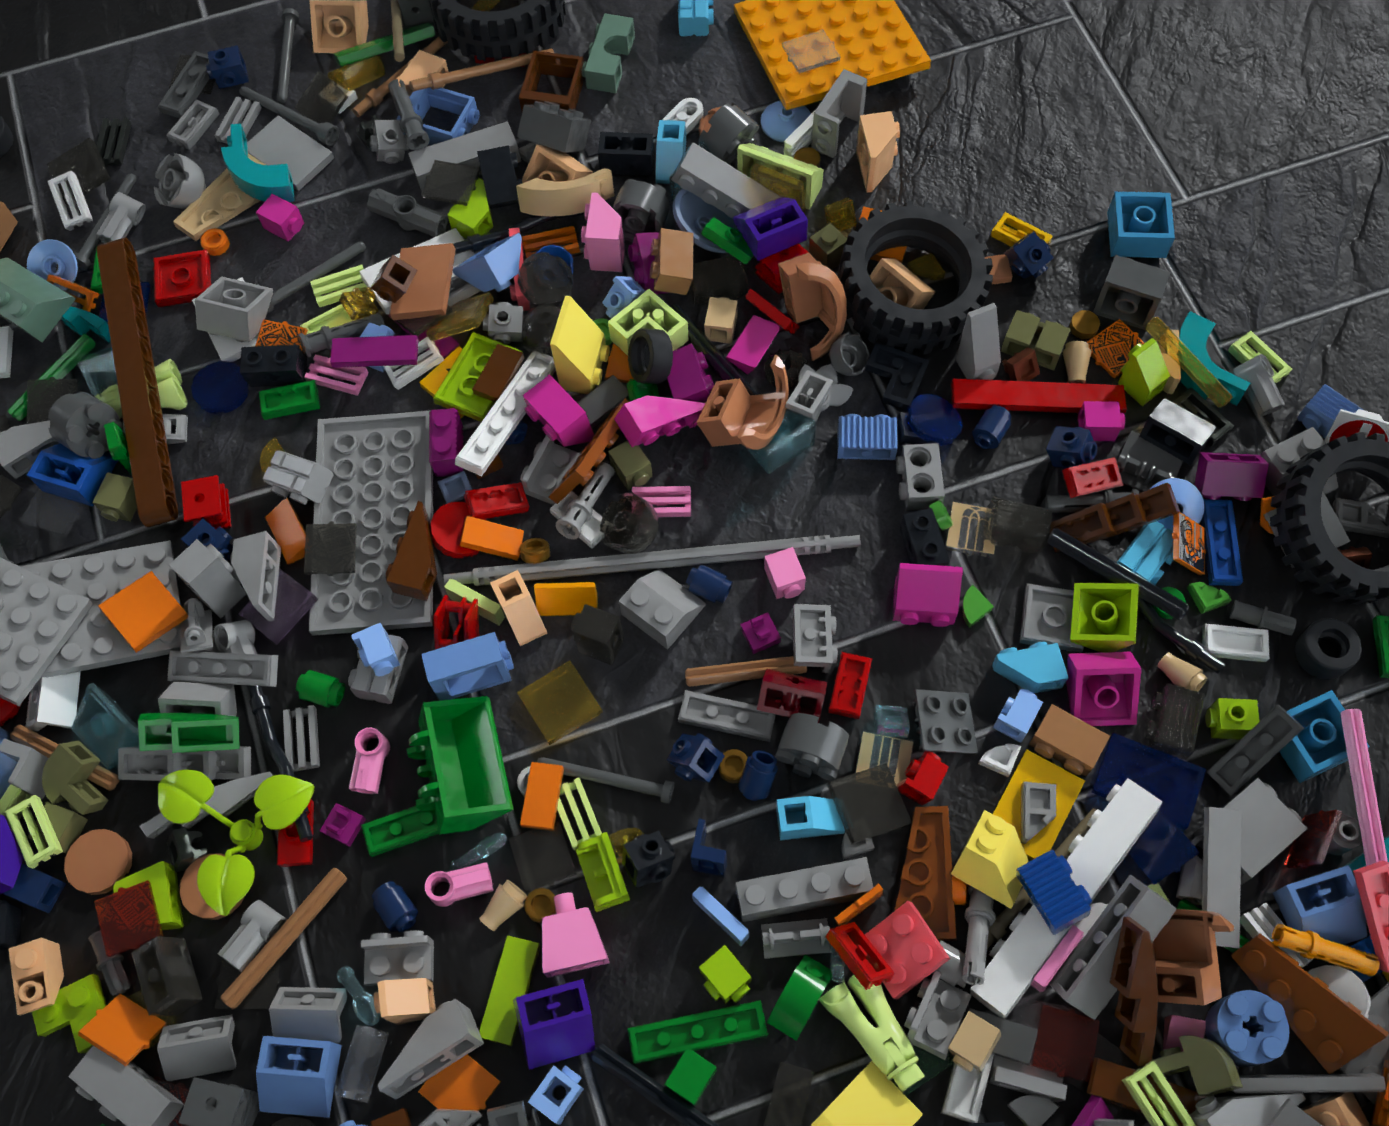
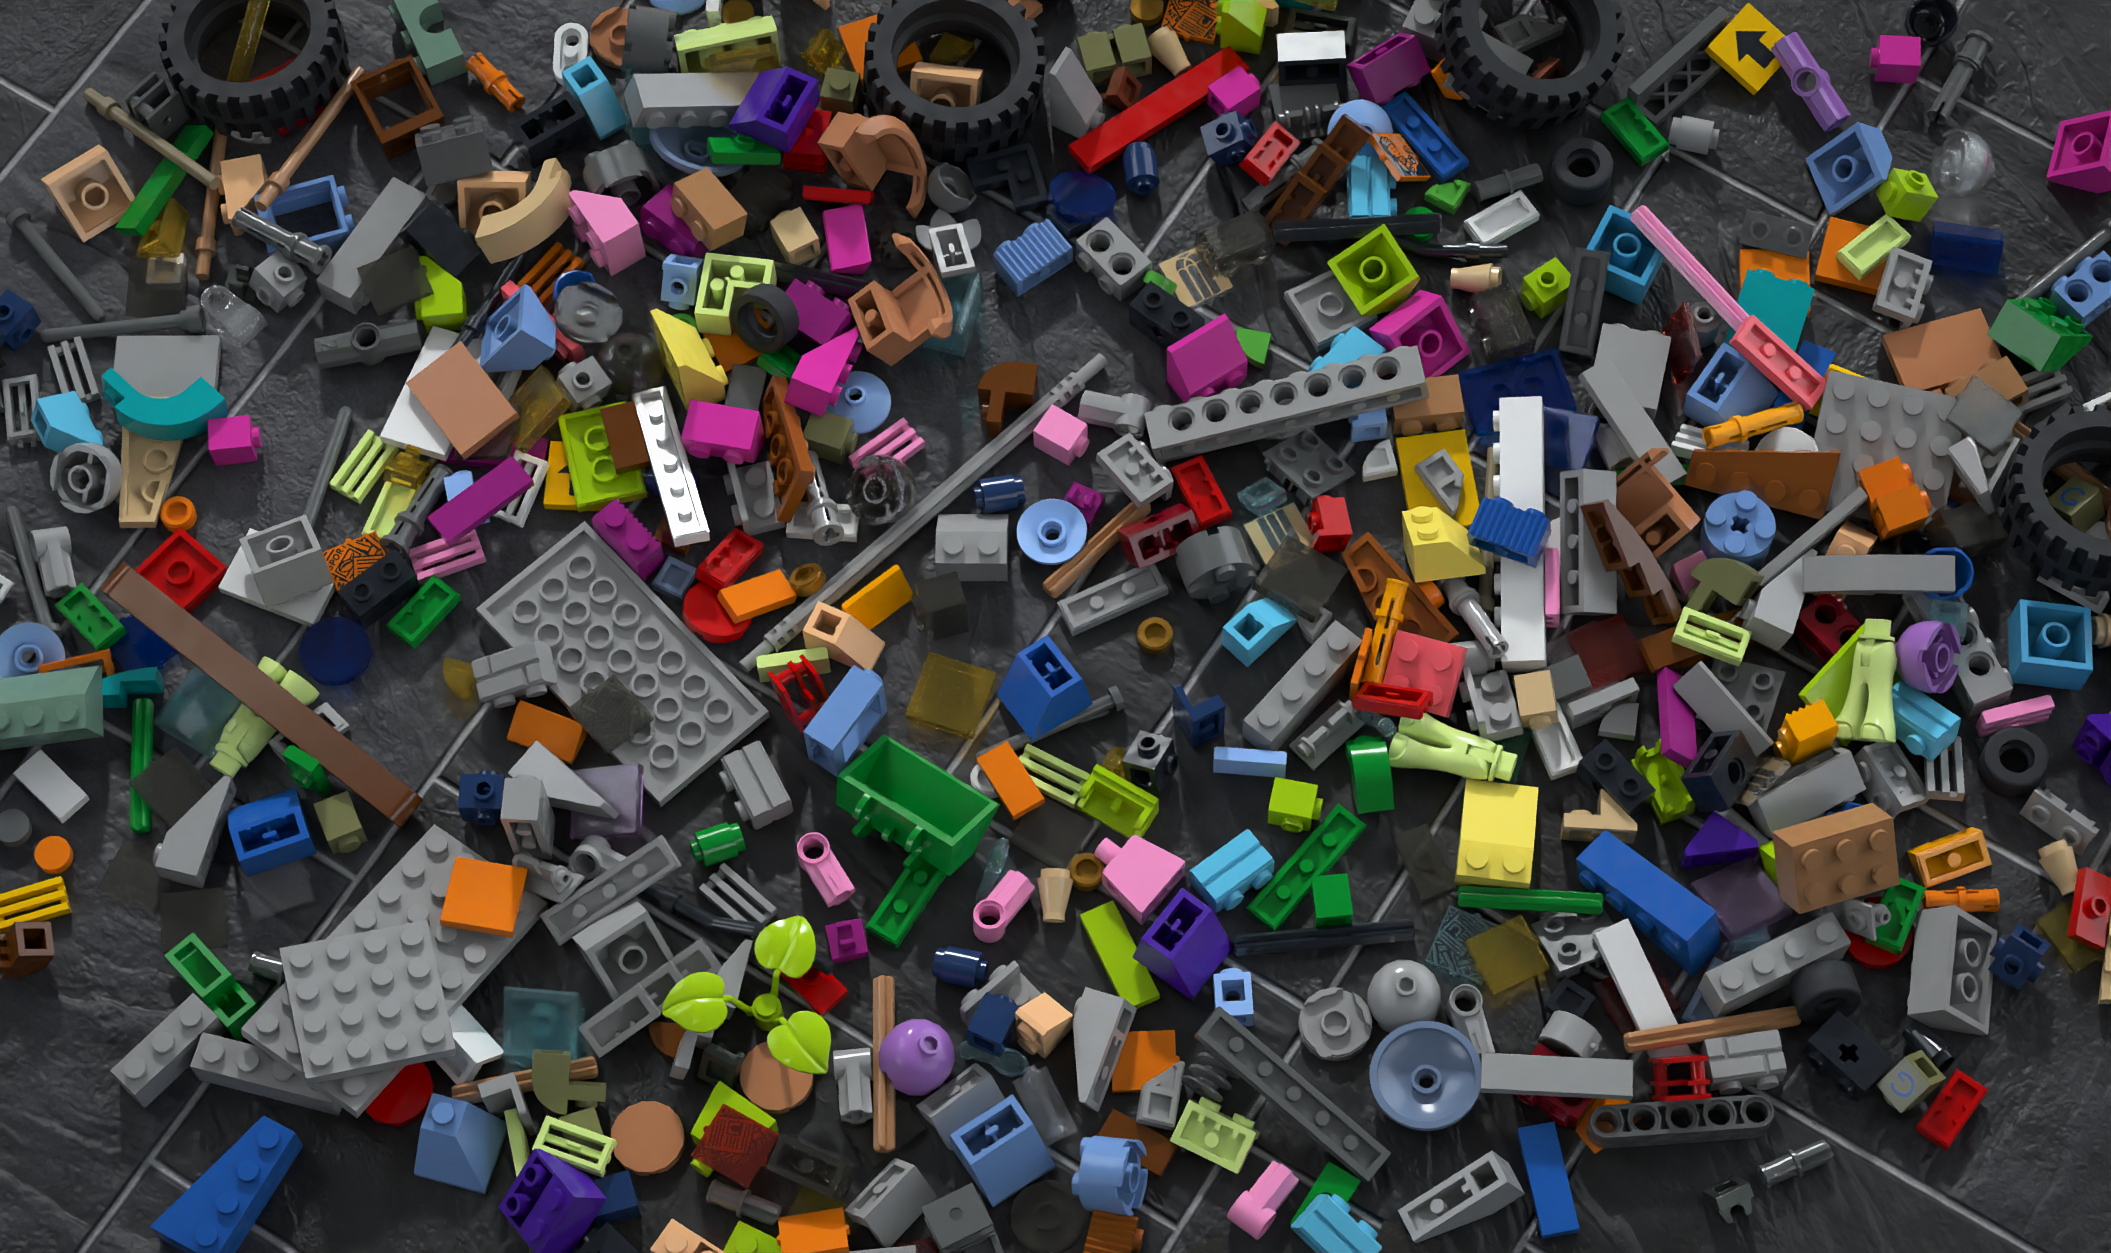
camera: 40 degrees left, 0 degrees up
(79, 423) = (250, 774): dark grey brick -> none
(188, 732) = (639, 960): green slope -> none
(199, 143) = (64, 421): none -> medium azure slope
(206, 500) = (439, 764): red piece -> none
(305, 952) = (917, 1056): none -> medium lavender cylinder
(347, 144) = (232, 316): none -> clear piece
(366, 970) = (993, 1024): none -> dark blue brick
(376, 649) = (752, 762): light blue brick -> none
(393, 279) = (444, 414): reddish brown brick -> none
(414, 564) = (710, 661): reddish brown slope -> none
(618, 747) = (1042, 689): none -> blue slope
(622, 107) = (495, 82): none -> orange pin
(638, 992) = (1232, 872): none -> medium azure brick
(676, 465) = (870, 409): none -> light blue dish
(695, 757) = (1119, 649): dark blue brick -> none
(719, 624) = (1051, 517): none -> light blue dish
(758, 775) = (1186, 624): dark blue brick -> none
(773, 512) = (1005, 386): none -> reddish brown brick
(841, 590) = (1121, 413): none -> light grey piece
(930, 868) = (1394, 591): none -> light orange pin
(940, 668) = (1301, 413): none -> light grey brick

